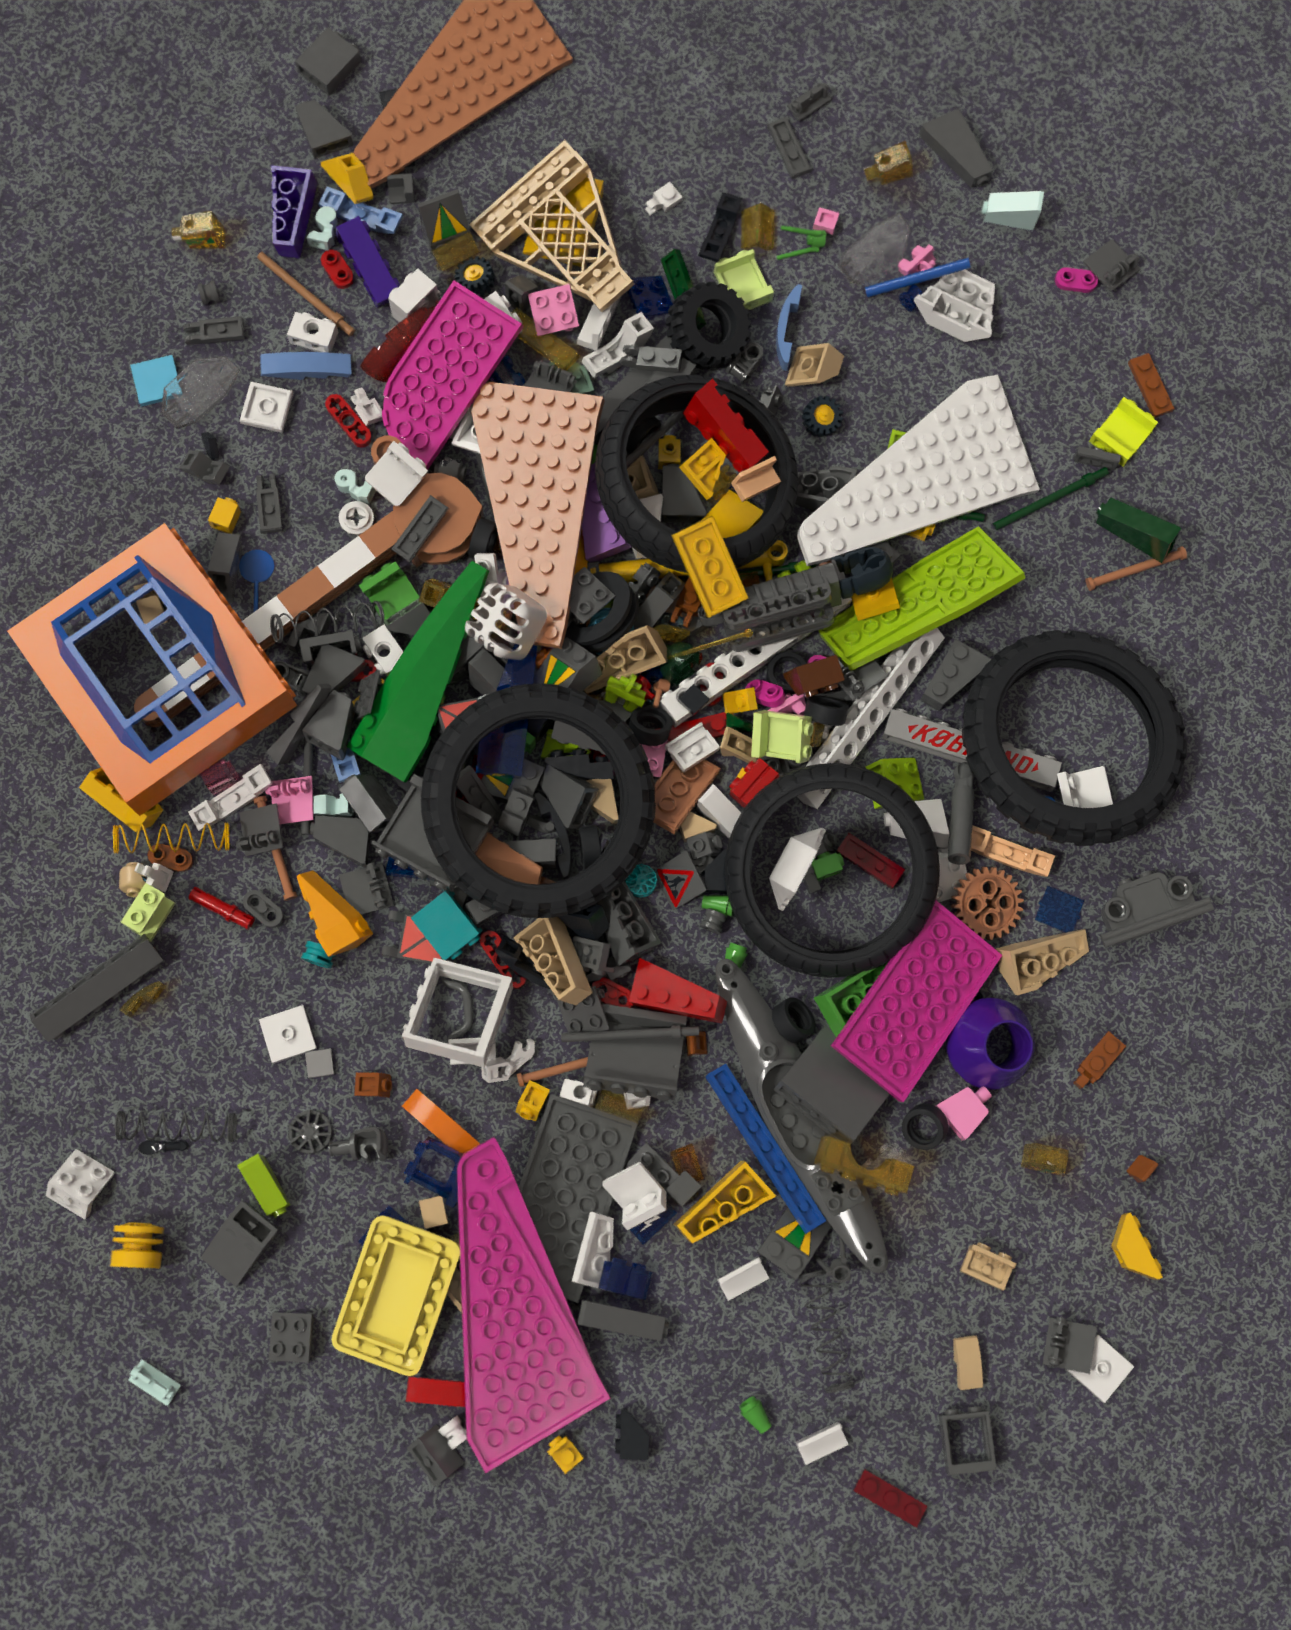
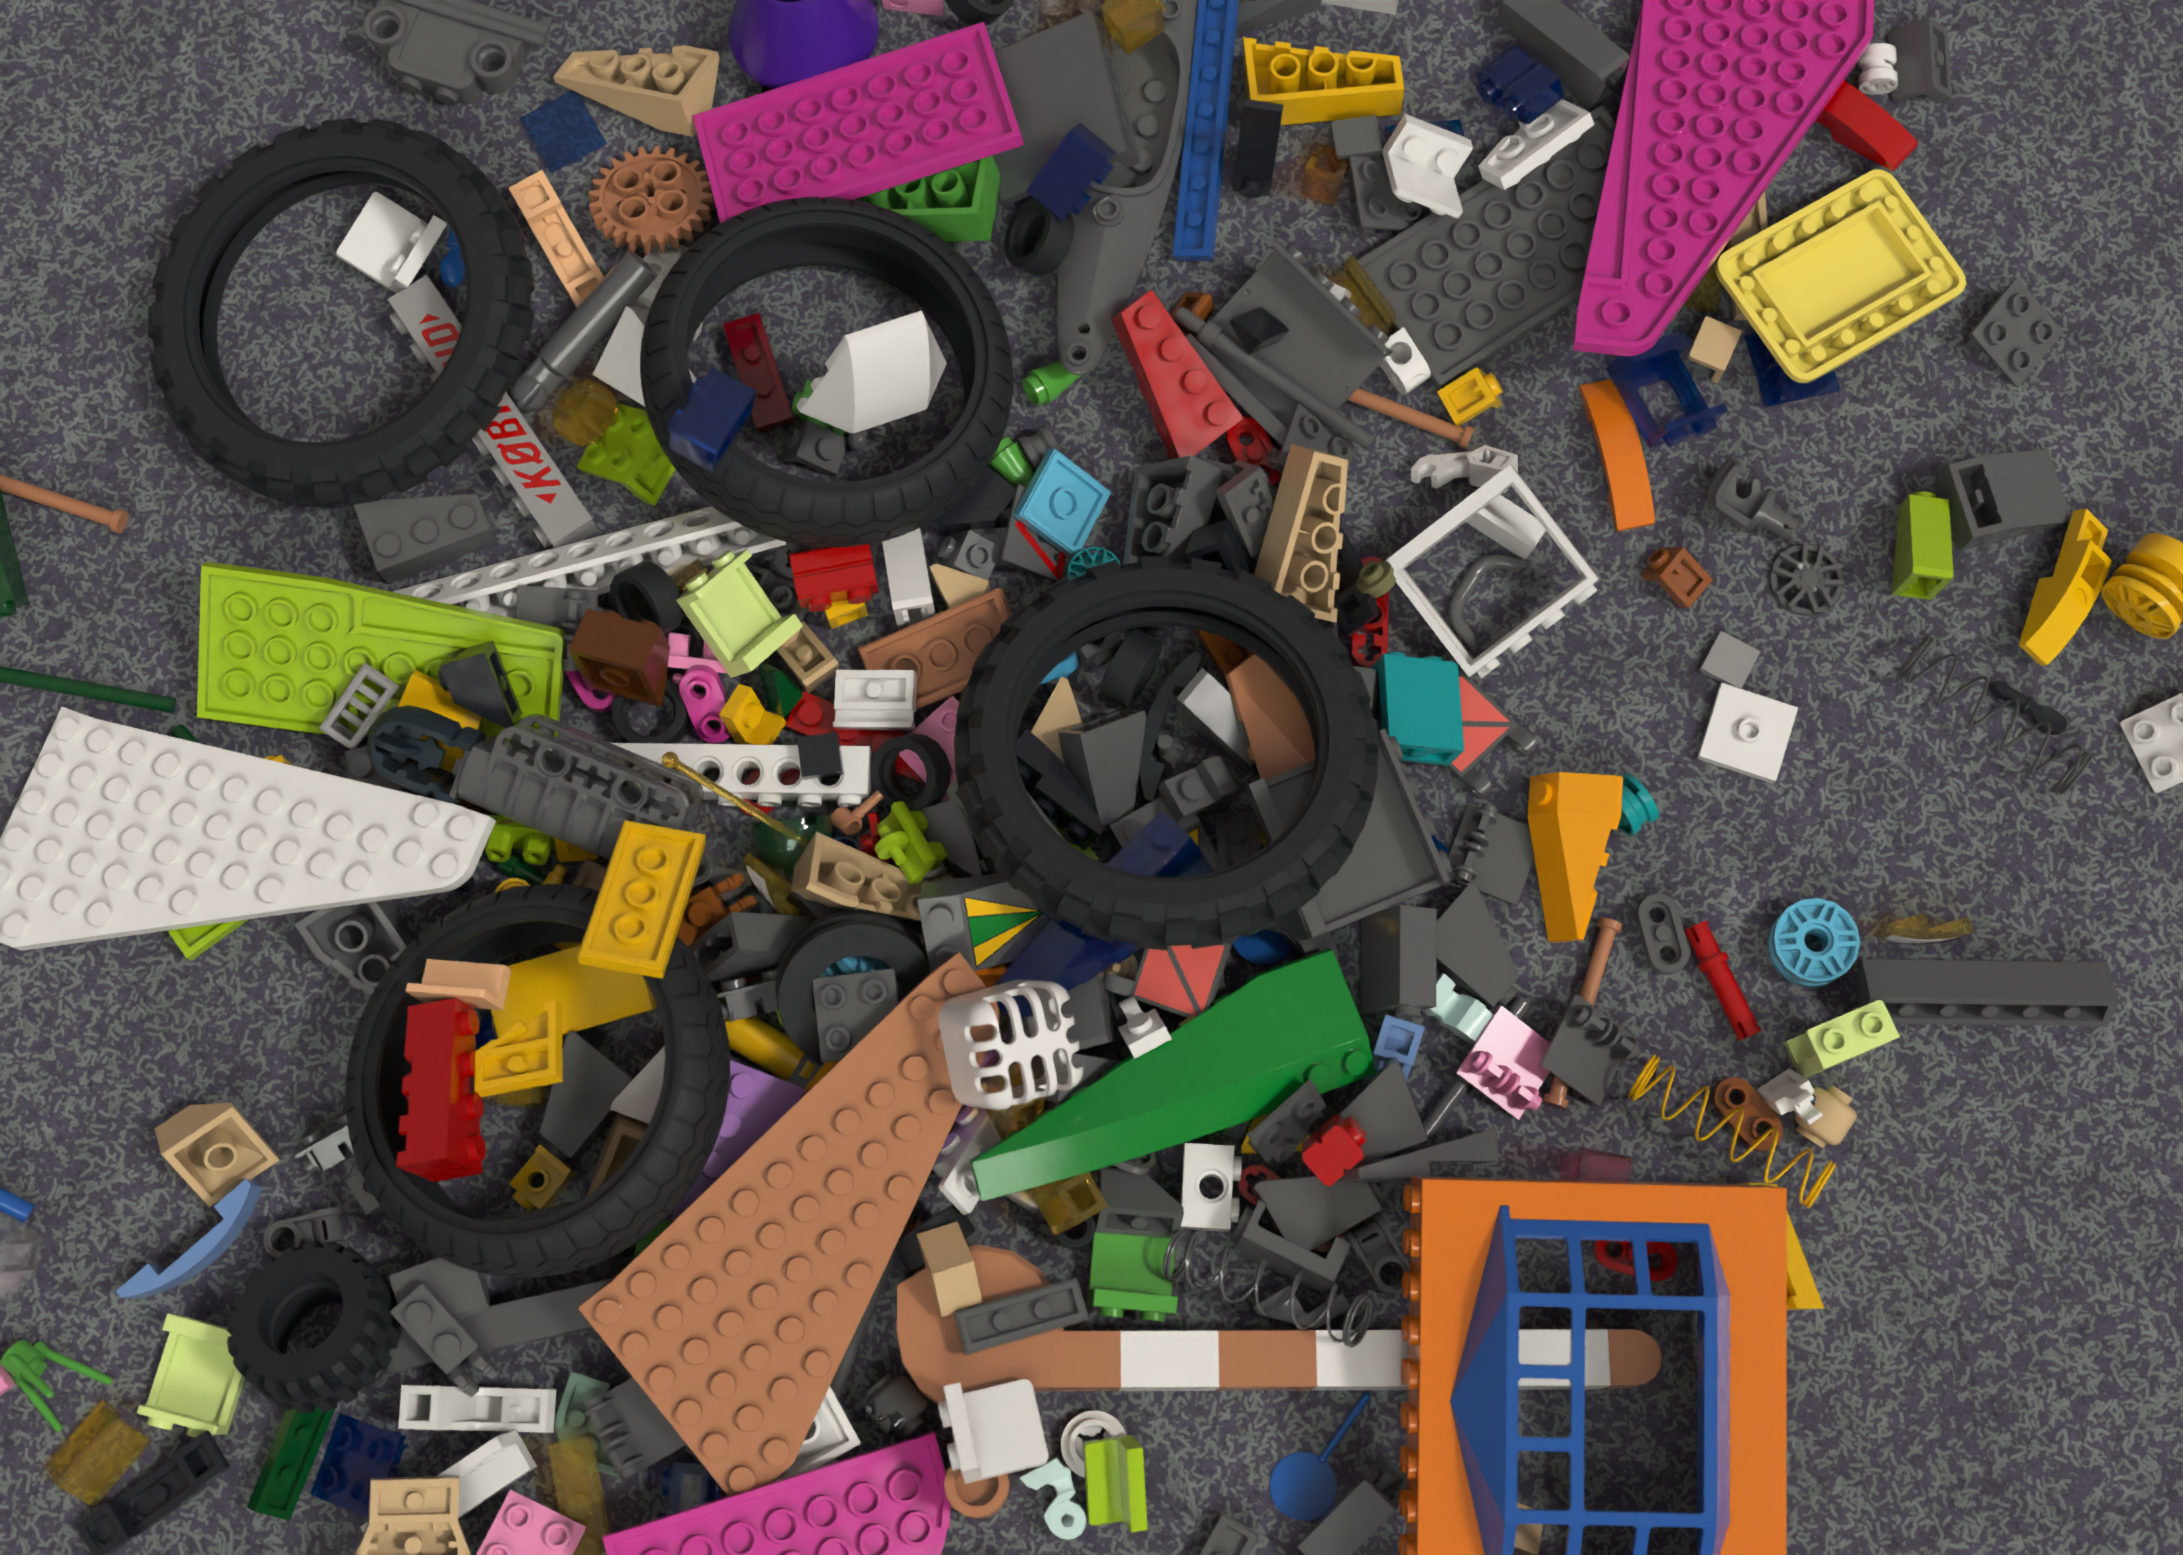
camera: 135 degrees left, 0 degrees up
(177, 1217) = (2068, 595): none -> yellow slope
(186, 941) = (1829, 924): none -> medium azure wheel
(231, 799) = (1572, 1128): white slope -> none
(336, 507) = (1115, 1482): none -> lime panel
(338, 689) = (1334, 1148): none -> red brick
(458, 683) = (1142, 1030): none -> white plate
(464, 524) = (950, 1268): none -> tan slope
(508, 966) = (1376, 578): none -> olive plate
(654, 1049) = (1258, 330): none -> black slope
(681, 900) = (1061, 503): none -> medium azure tile
(723, 1139) = (1257, 148): none -> black slope
(797, 1051) = (1072, 171): none -> clear blue brick
(822, 416) = (269, 1059): black wheel -> none
(852, 783) = (710, 419): none -> clear blue brick
(865, 620) = (480, 683): none -> black slope
(910, 563) = (340, 732): none -> light grey slope
(930, 780) = (584, 412): none -> clear yellow gear

